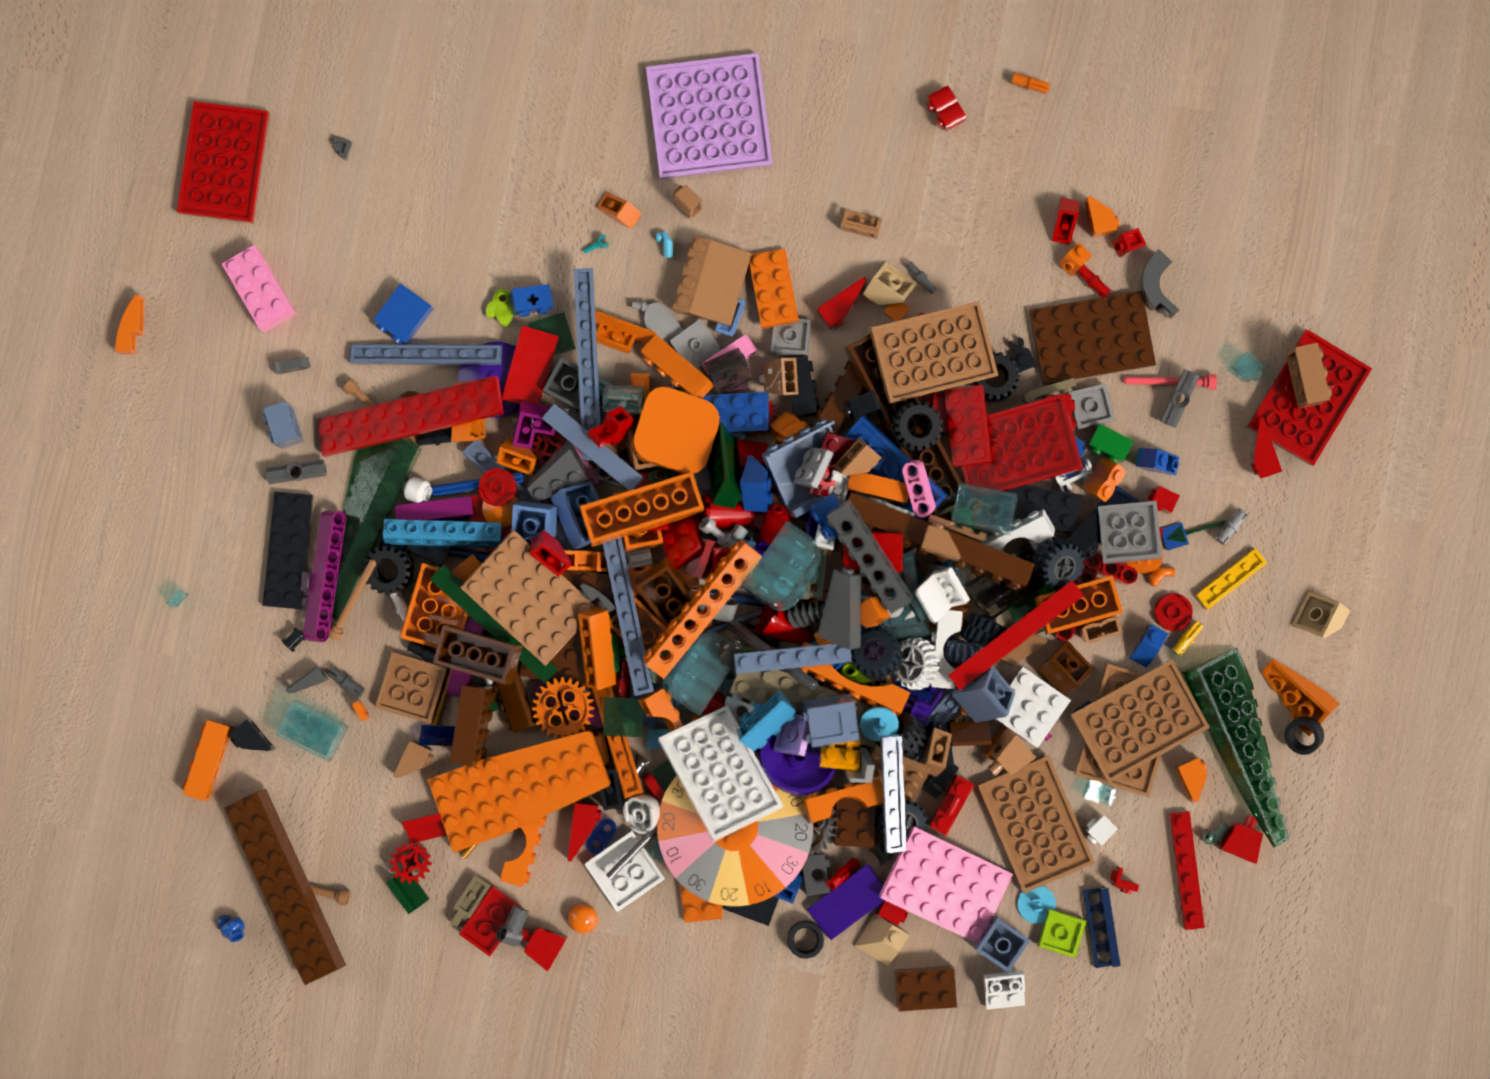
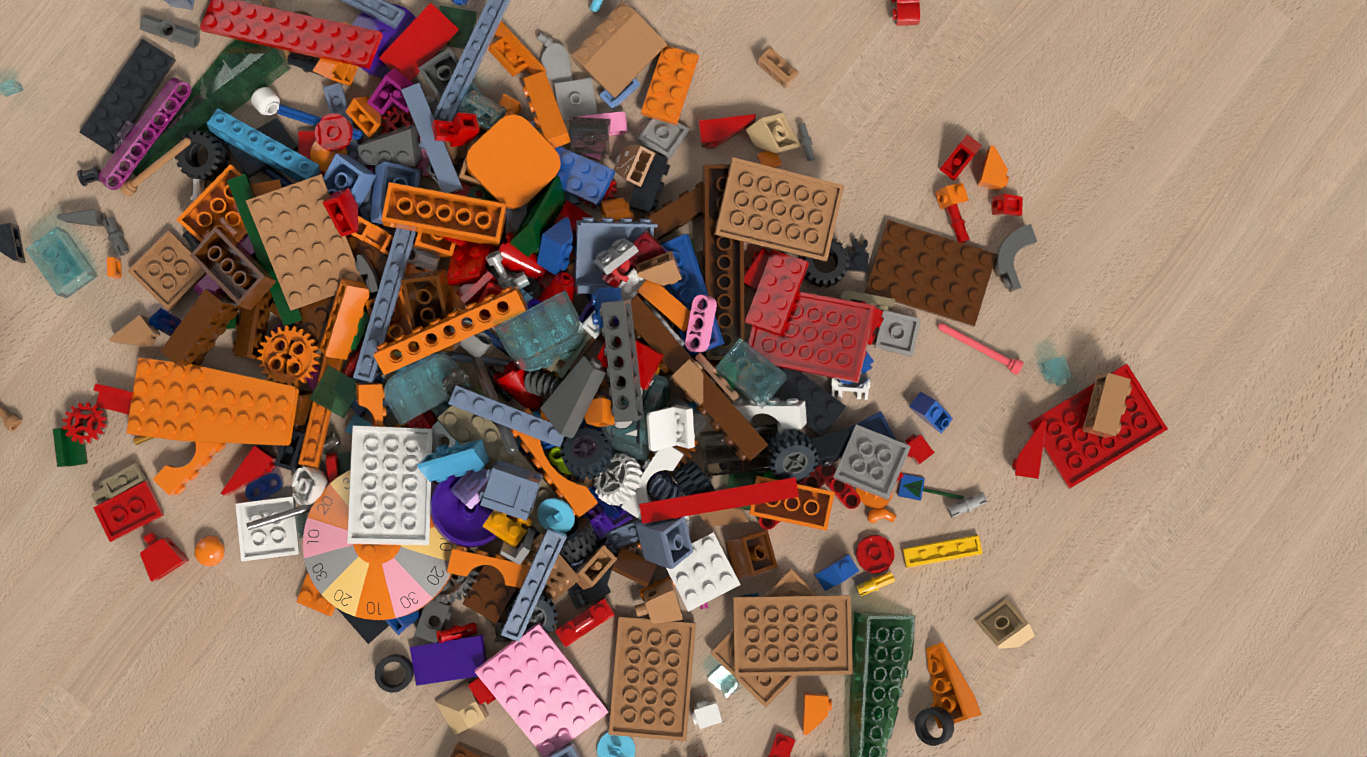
camera: 30 degrees right, 0 degrees up
(436, 510) = (272, 126): magenta tile -> none
(442, 701) = (184, 302): pearl gold bar -> none
(511, 932) = (138, 529): dark grey piece -> none
(861, 405) = (690, 224): black slope -> none
(932, 421) = (745, 262): black tyre -> none
(1030, 83) = (993, 20): orange axle -> none
(1096, 630) = (800, 534): medium nougat brick -> none
(1104, 479) = (874, 403): orange brick -> none
(1109, 443) = (896, 375): green brick -> none
(1184, 386) = (970, 374): dark grey piece -> none

